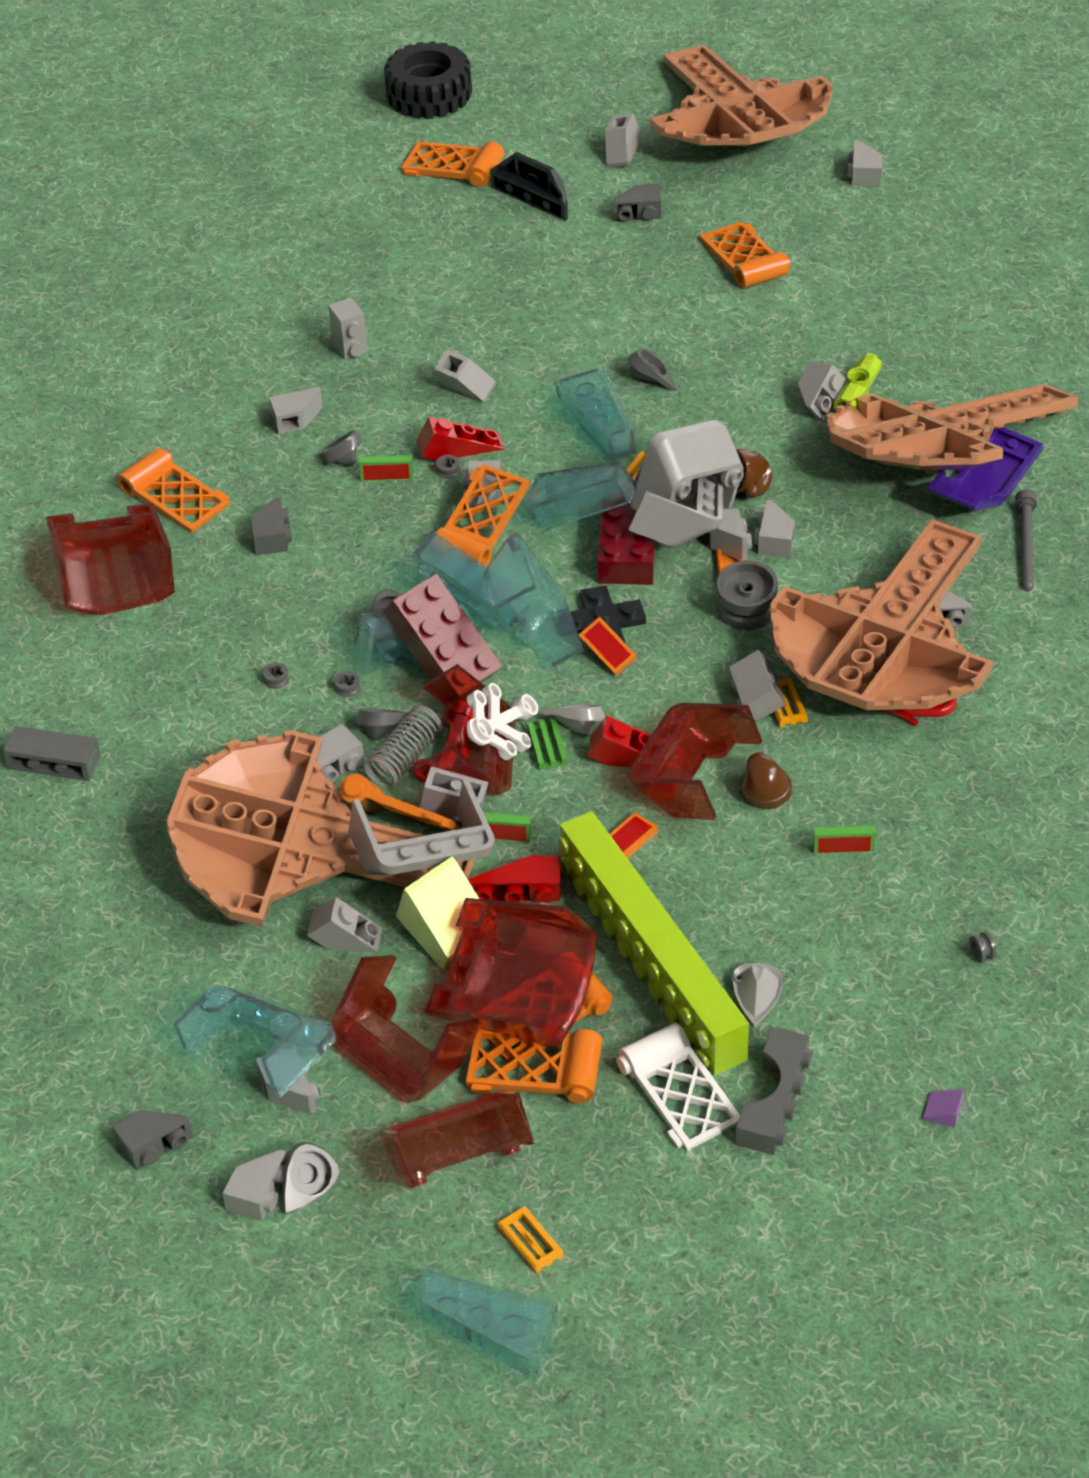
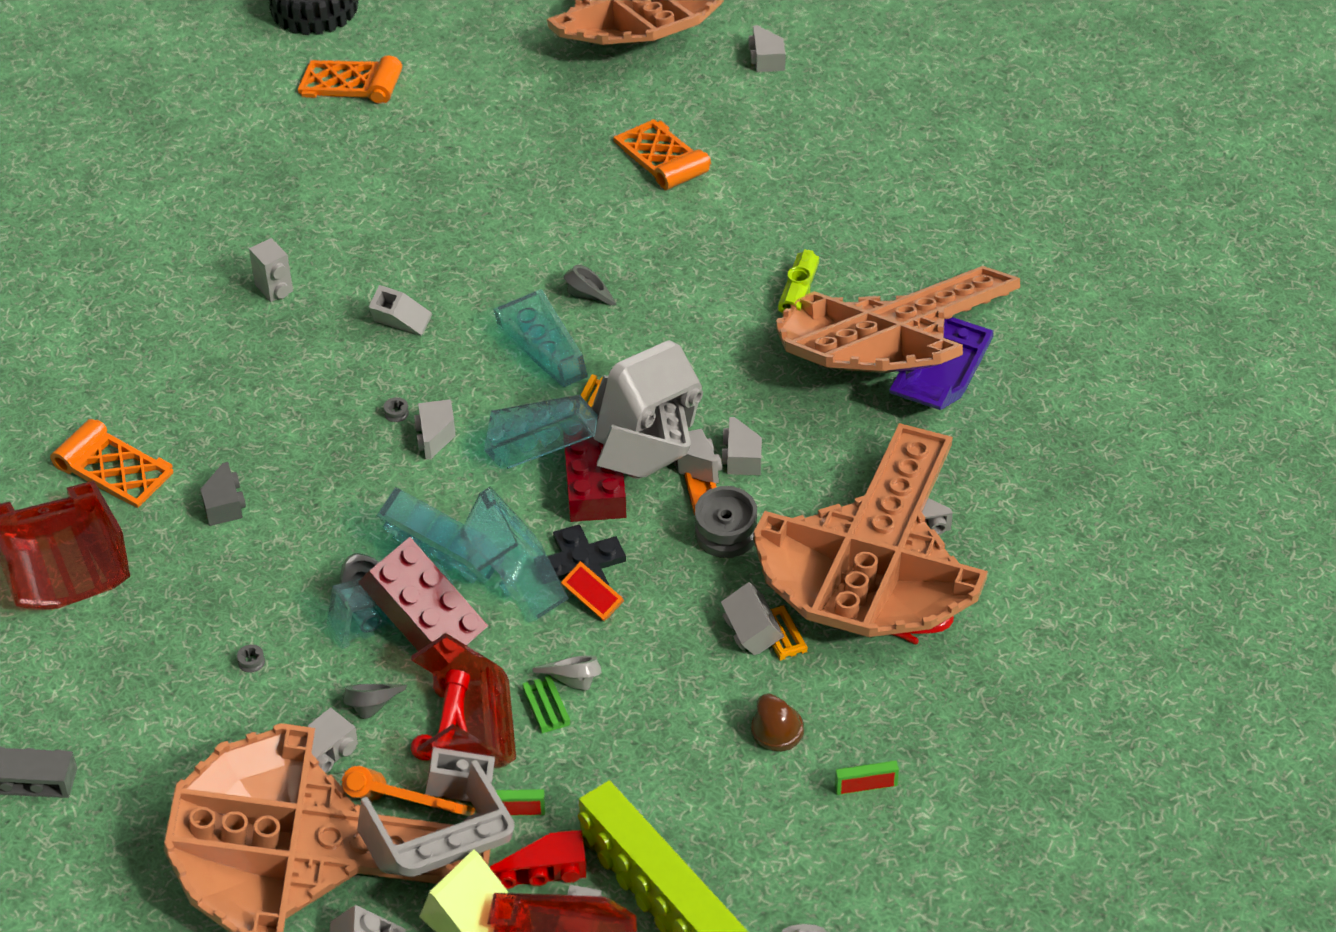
camera: 10 degrees left, 0 degrees up
(295, 409) = (228, 362): light grey slope -> none
(343, 450) = (284, 400): dark grey piece -> none
(350, 678) = (324, 666): dark grey bush -> none
(382, 762) = (382, 747): light grey piece -> none
(386, 467) = (332, 417): tile -> none
(444, 437) = (392, 379): red slope -> none
(464, 538) = (424, 488): orange piece -> none
(481, 729) = (480, 701): white plant -> none
(531, 183) = (435, 97): black wedge -> none
(616, 743) = (629, 699): red slope -> none
(621, 140) = (520, 43): light grey slope -> none
(633, 833) = (650, 794): tile -> none
(638, 203) = (547, 109): dark grey slope -> none
(679, 747) = (681, 699): clear red windscreen -> none
(756, 474) = (714, 389): reddish brown piece -> none
(820, 387) = (762, 290): light grey slope -> none
(982, 946) = (1025, 879): dark grey bush -> none
(1026, 503) = (986, 394): dark grey piece -> none

